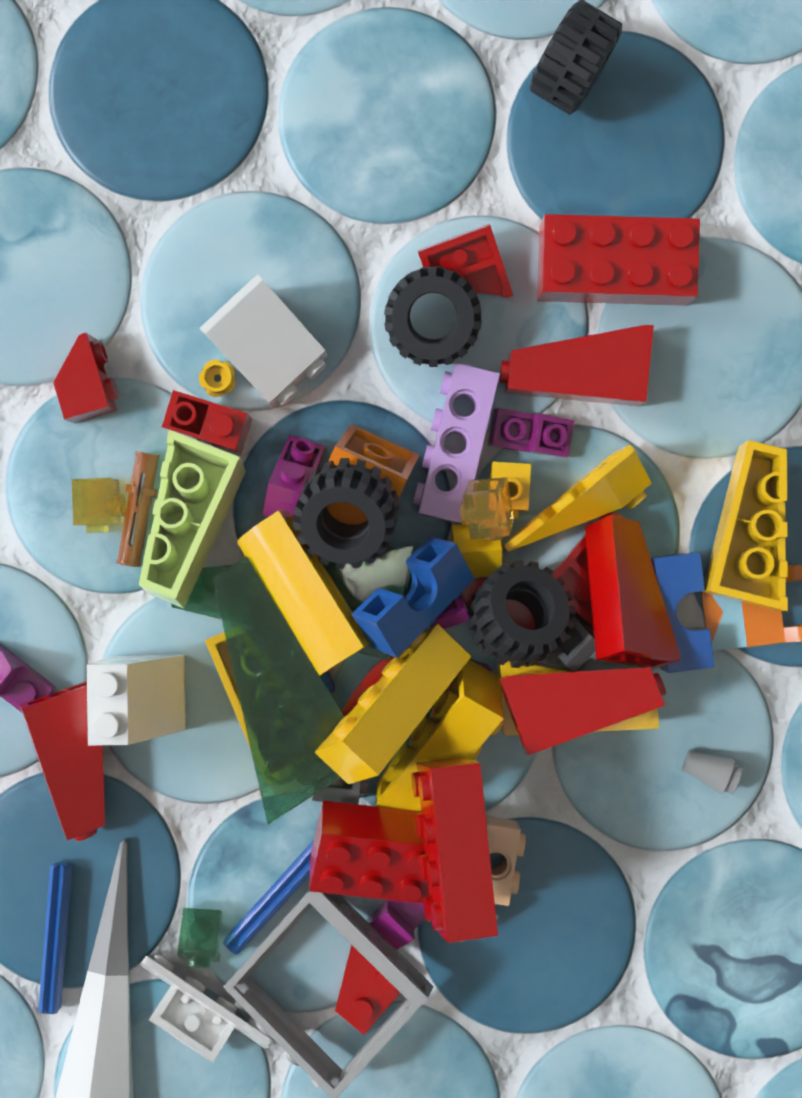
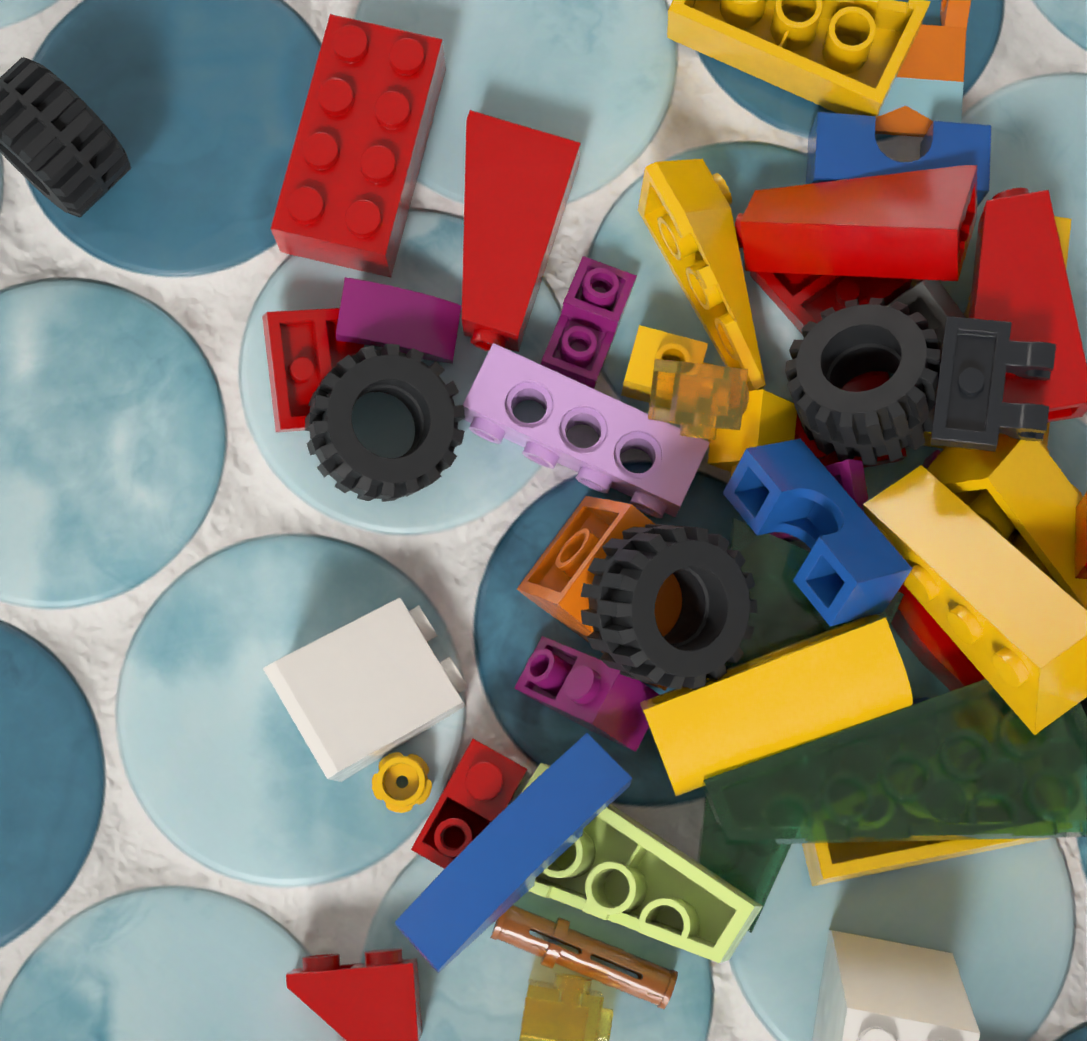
camera: 80 degrees left, 10 degrees down
(180, 450) = (512, 852): none -> blue slope
(504, 310) = (394, 315): none -> magenta slope
(523, 675) = (973, 380): none -> black plate

